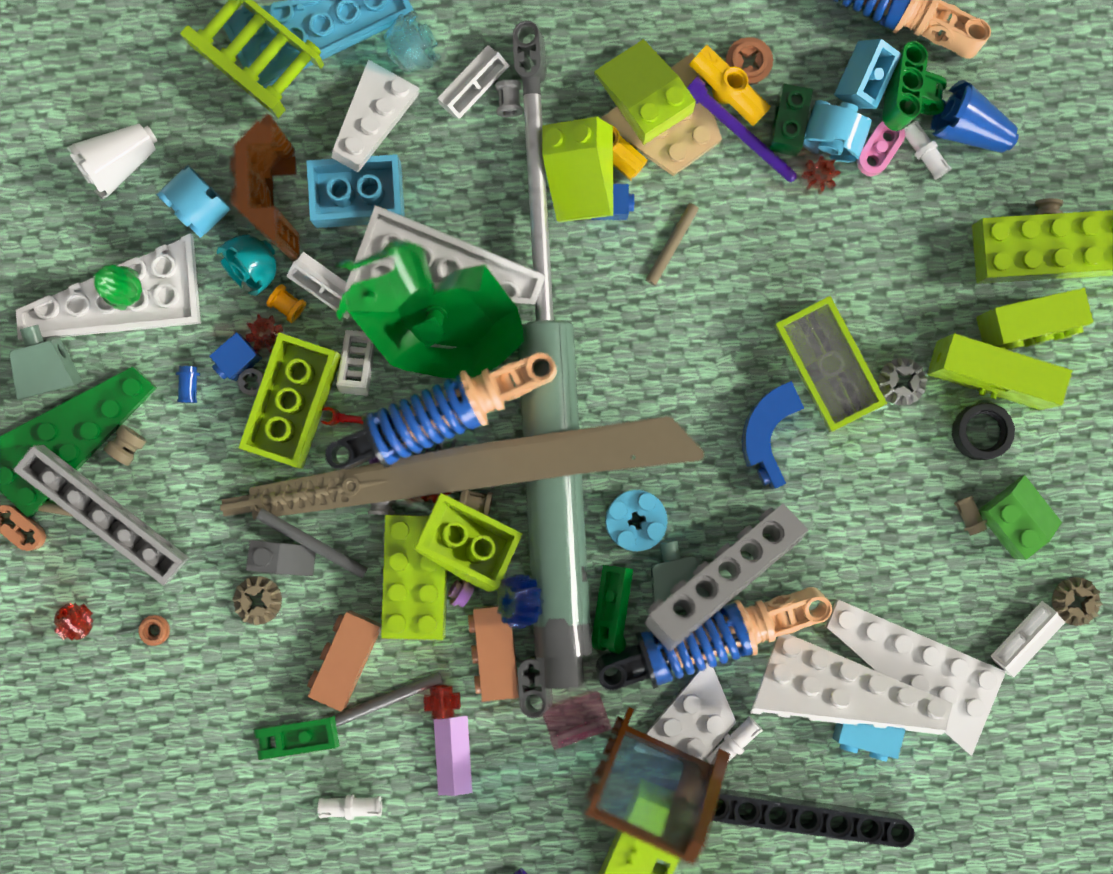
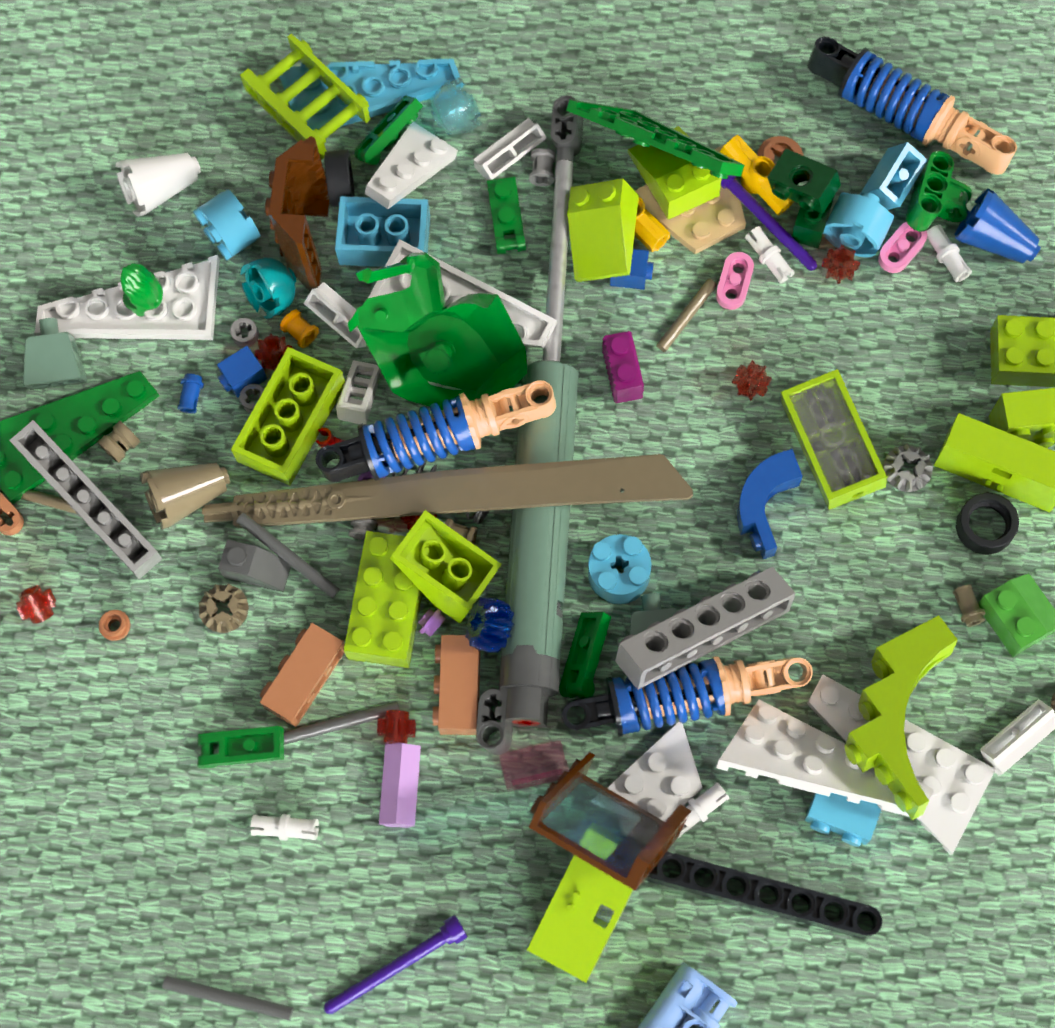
camera: 15 degrees right, 15 degrees down
(198, 490) = (182, 490): none -> dark tan cone
(222, 310) = (236, 330): none -> light grey bush
(302, 135) = (338, 175): none -> black tyre
(344, 75) = (387, 130): none -> green plate
(478, 154) = (506, 214): none -> green plate
(616, 310) = (622, 367): none -> magenta brick
(621, 58) = (651, 132): none -> green wing
(717, 204) = (735, 282): none -> bright pink plate
(744, 310) = (751, 380): none -> clear red gear
(748, 171) = (769, 254): none -> white pin
(769, 82) = (796, 168): none -> dark green brick
(904, 633) = (882, 740): none -> lime arch

